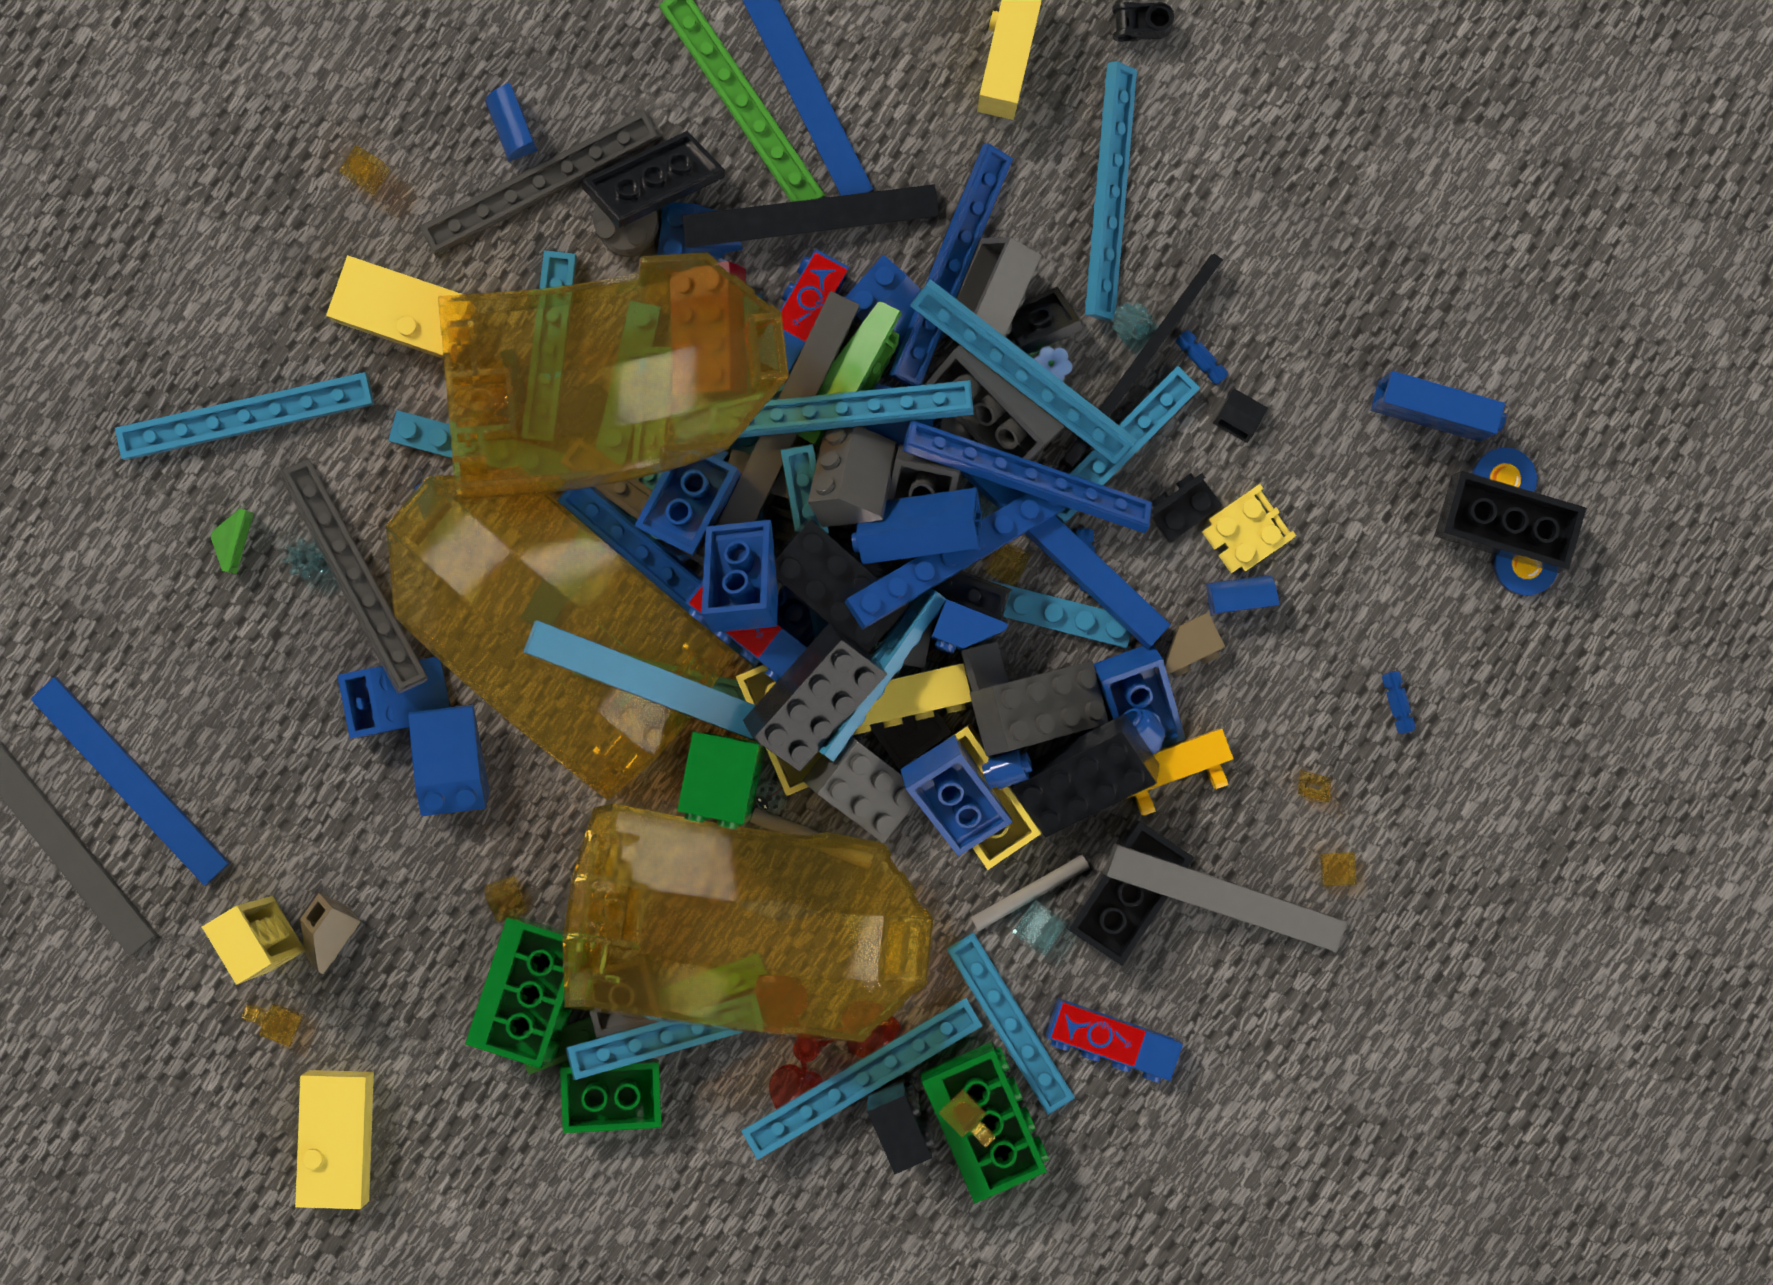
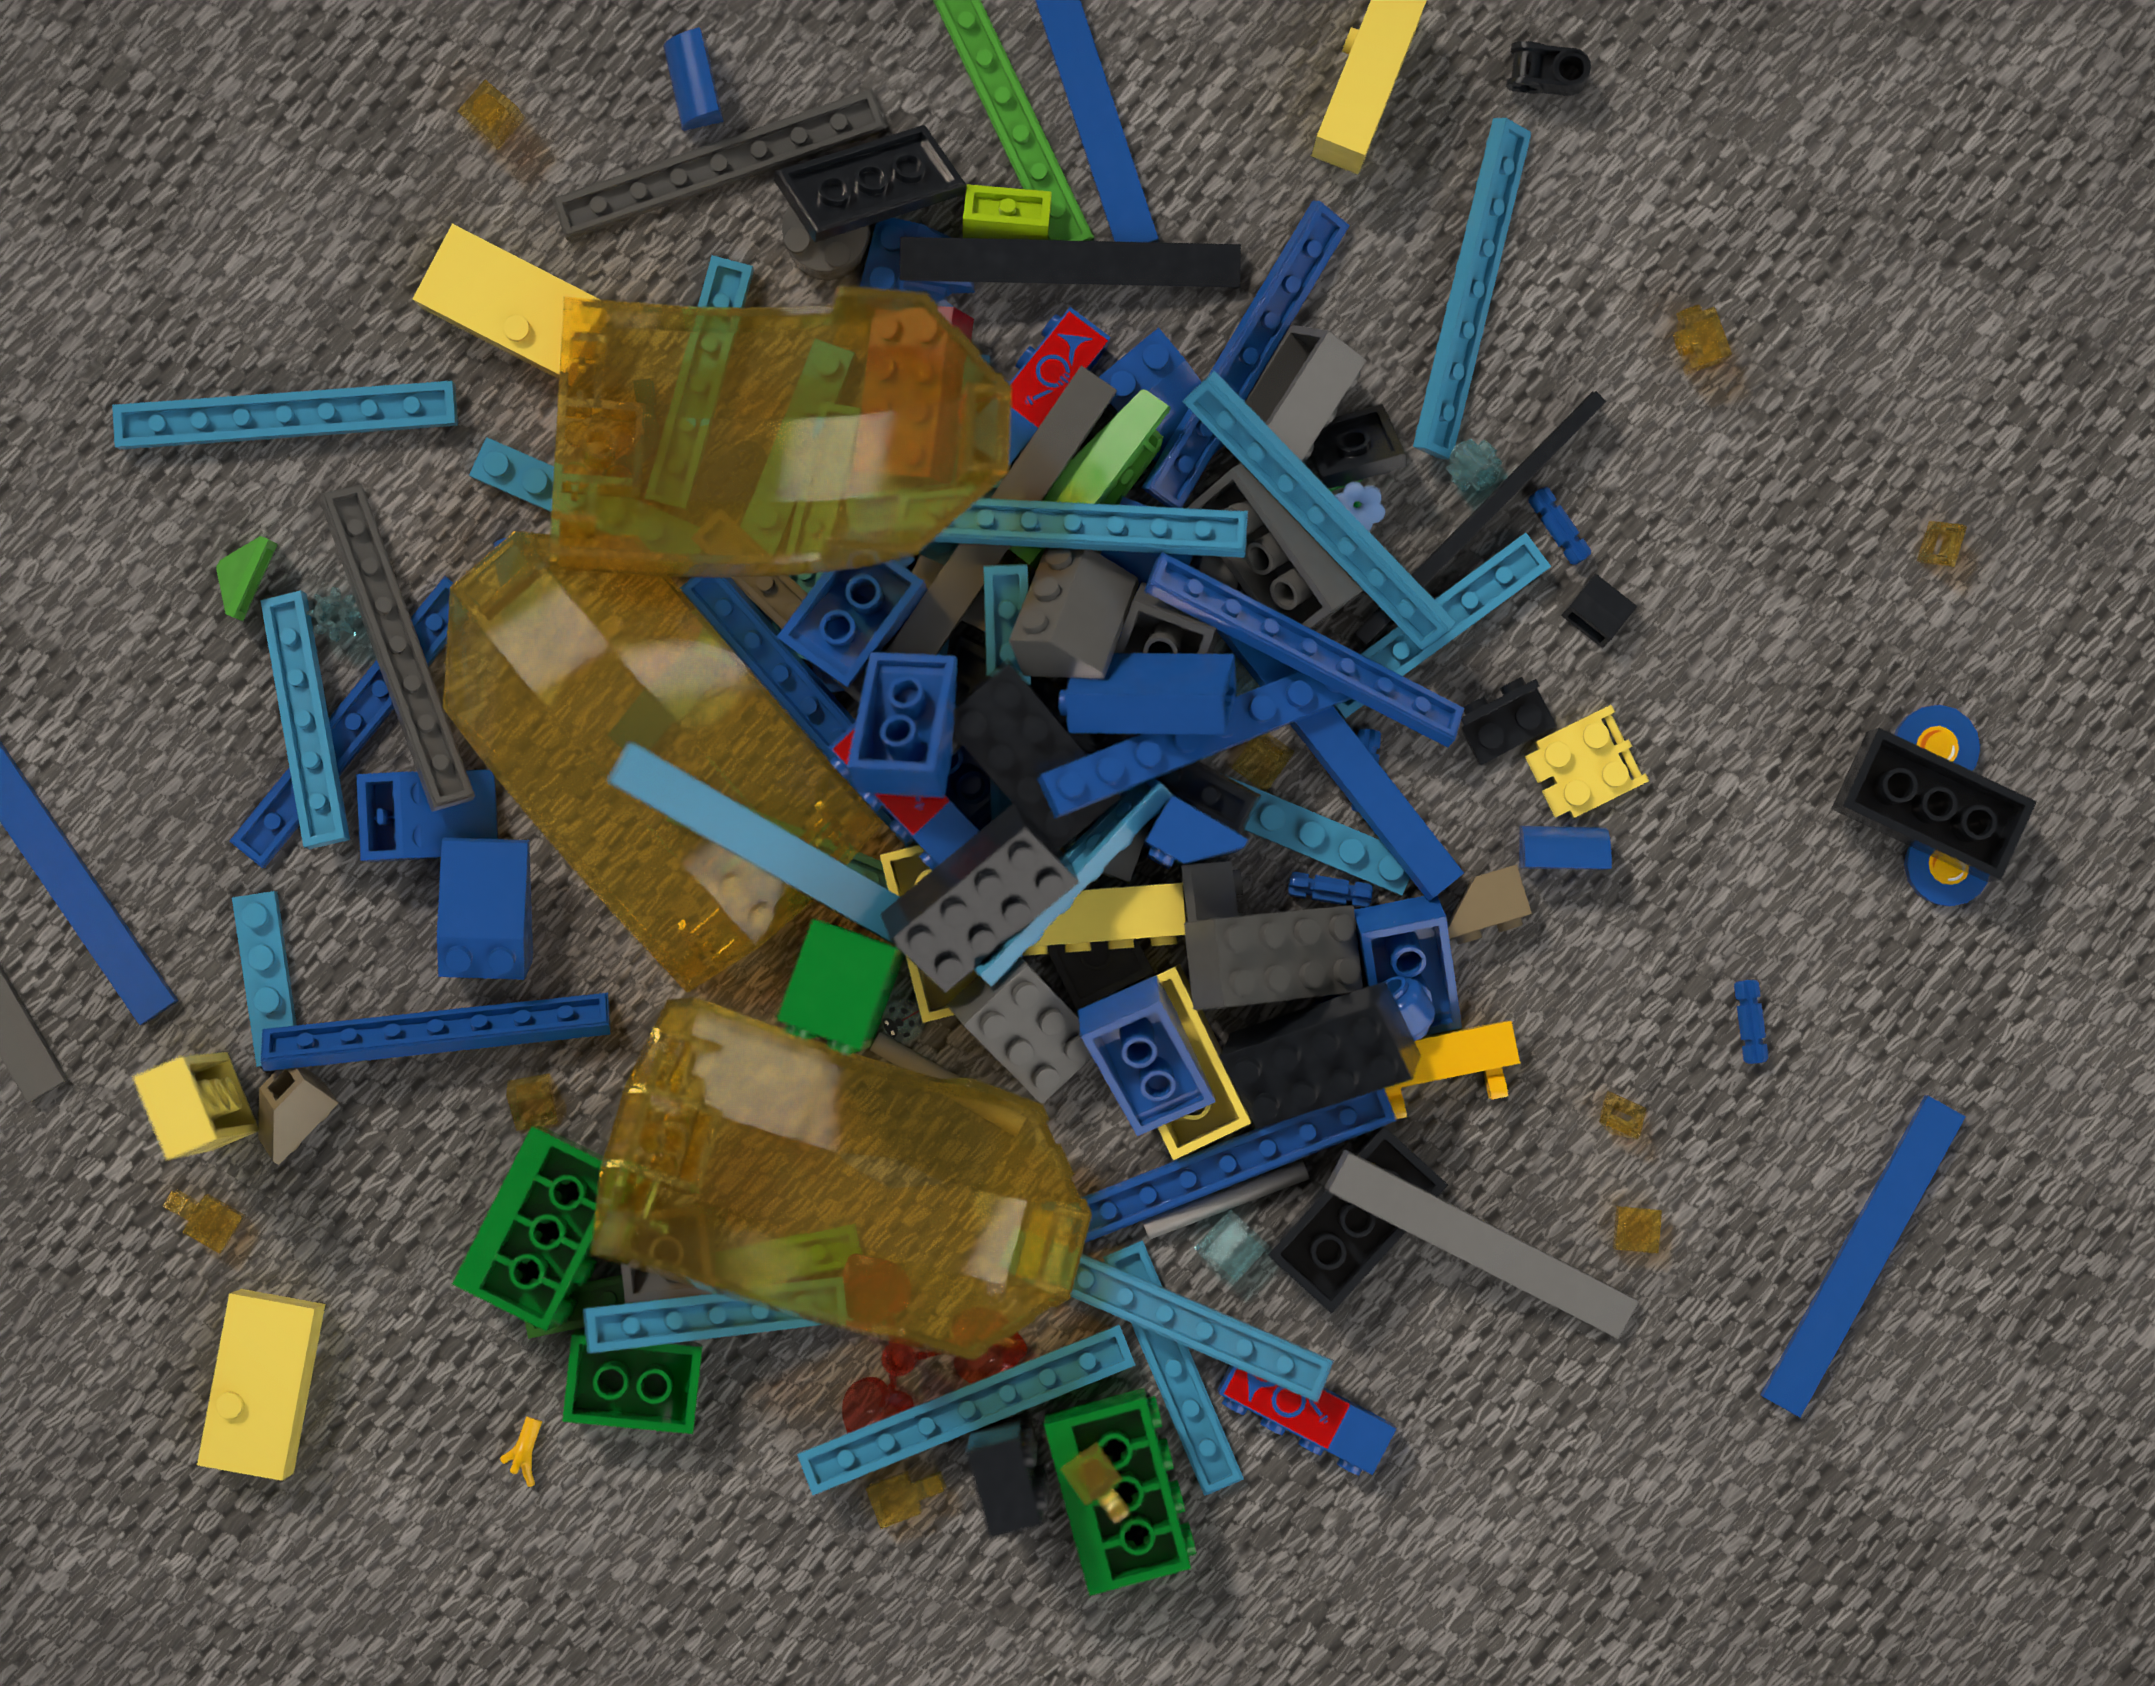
camera: 15 degrees right, 0 degrees up
(293, 640) = (305, 720): none -> dark azure plate
(293, 836) = (263, 964): none -> dark azure plate
(318, 655) = (351, 729): none -> blue tile
(424, 857) = (435, 1032): none -> blue tile
(536, 1160) = (523, 1450): none -> yellow bar
(757, 186) = (1006, 213): none -> lime panel
(821, 1151) = (899, 1497): none -> clear yellow plate
(1007, 769) = (1218, 1031): blue brick -> none
(1027, 991) = (1201, 1328): none -> dark azure tile
(1032, 864) = (1233, 1162): none -> blue tile
(1073, 652) = (1330, 890): none -> blue axle
(1285, 203) = (1700, 338): none -> clear yellow brick
(1438, 406) = (1862, 638): blue brick -> none
(1492, 332) = (1953, 538): none -> clear yellow slope
(1507, 863) = (1862, 1256): none -> blue tile

